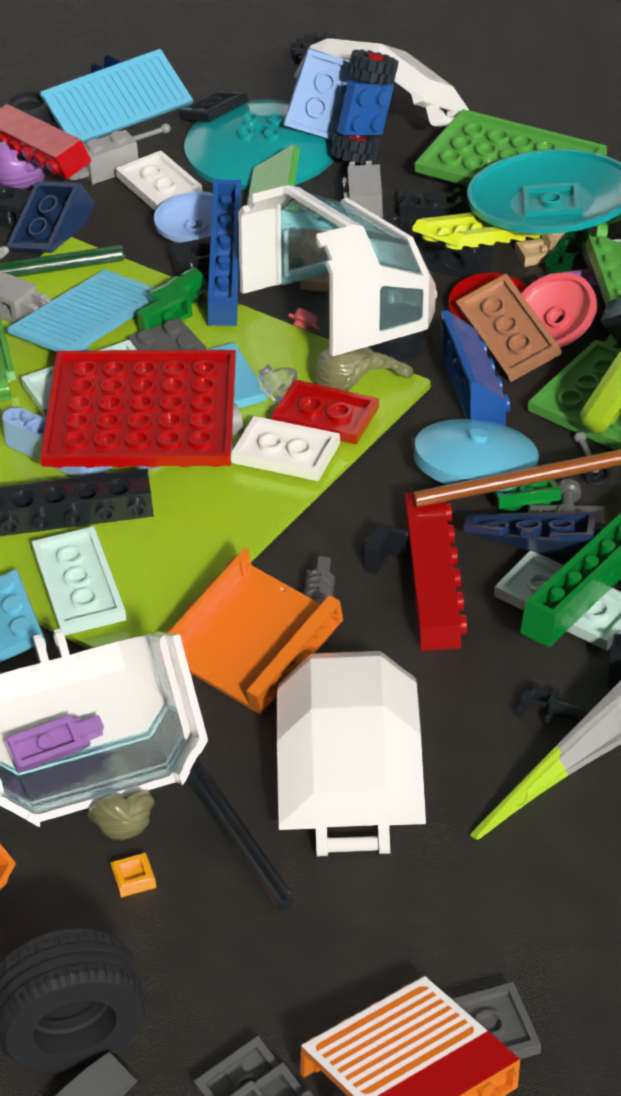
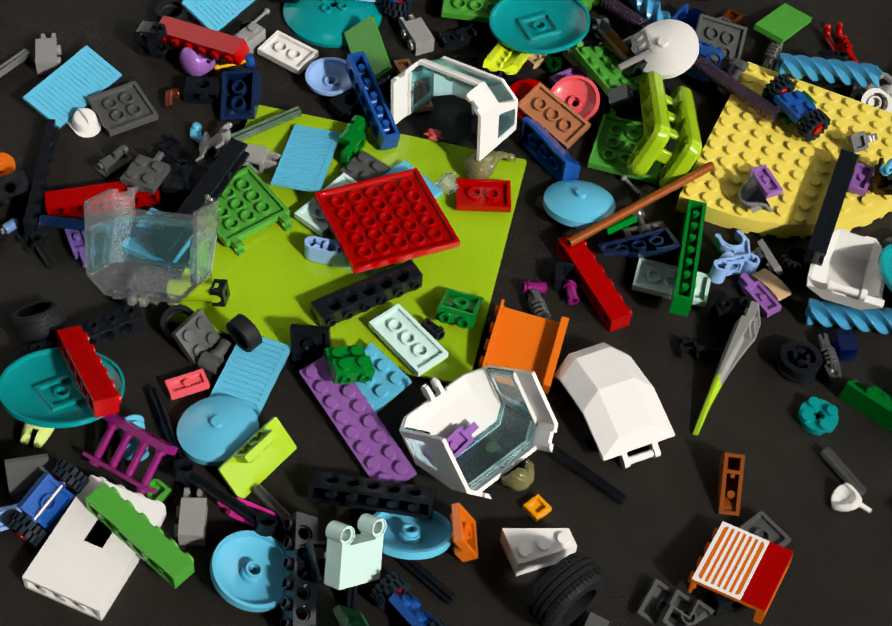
camera: 30 degrees left, 10 degrees up
(67, 908) = (536, 547): none -> white wedge
(95, 182) = (247, 62): none -> hinge
(128, 579) = (435, 331): none -> black pin
(182, 554) = (459, 308): none -> green plate
(285, 448) = (476, 224): white plate -> none
(339, 558) = (540, 286): none -> magenta pin
(389, 571) = (570, 288): none -> magenta pin
(483, 924) = (730, 483): none -> dark orange slope

